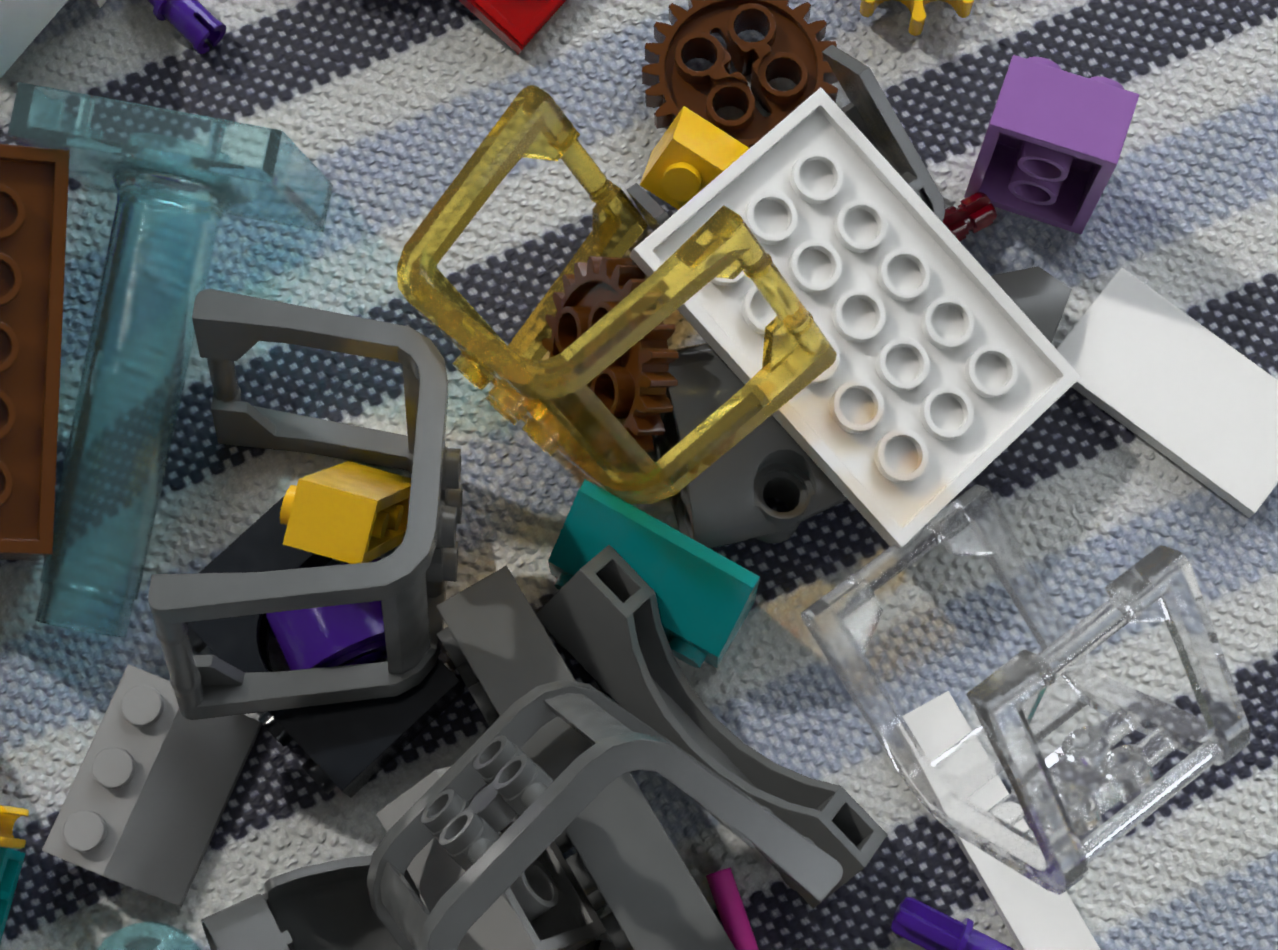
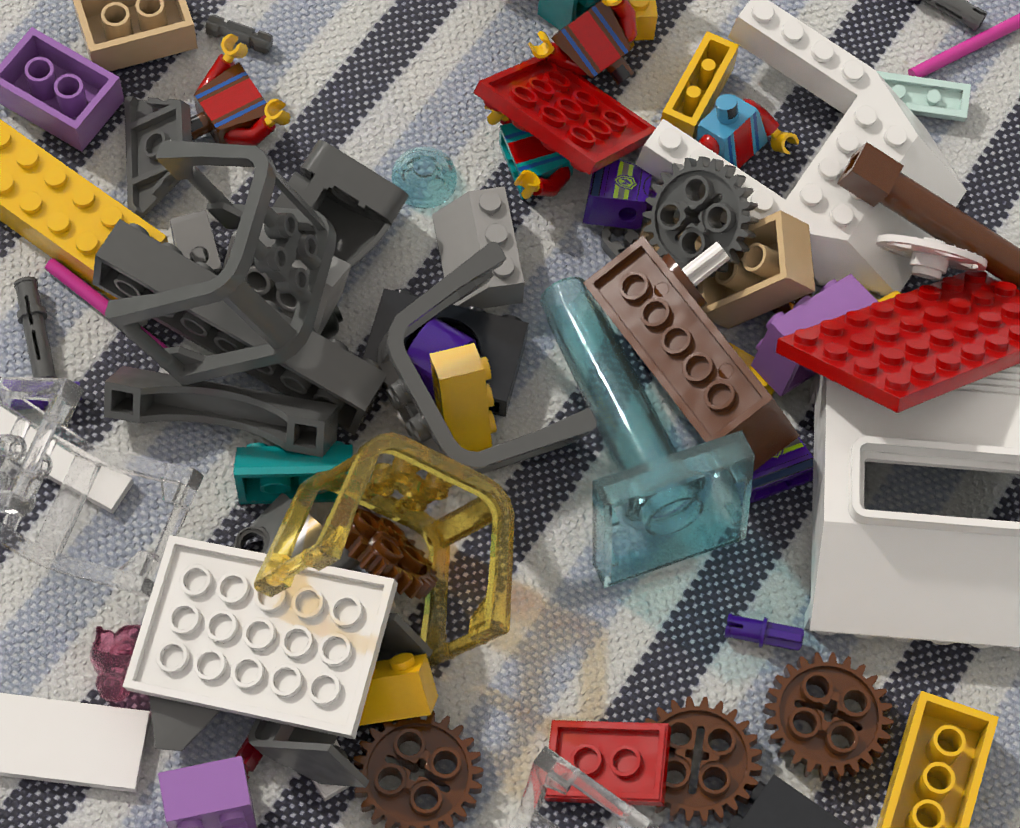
camera: 140 degrees right, 10 degrees down
(1072, 437) = (111, 658): none -> clear pink piece

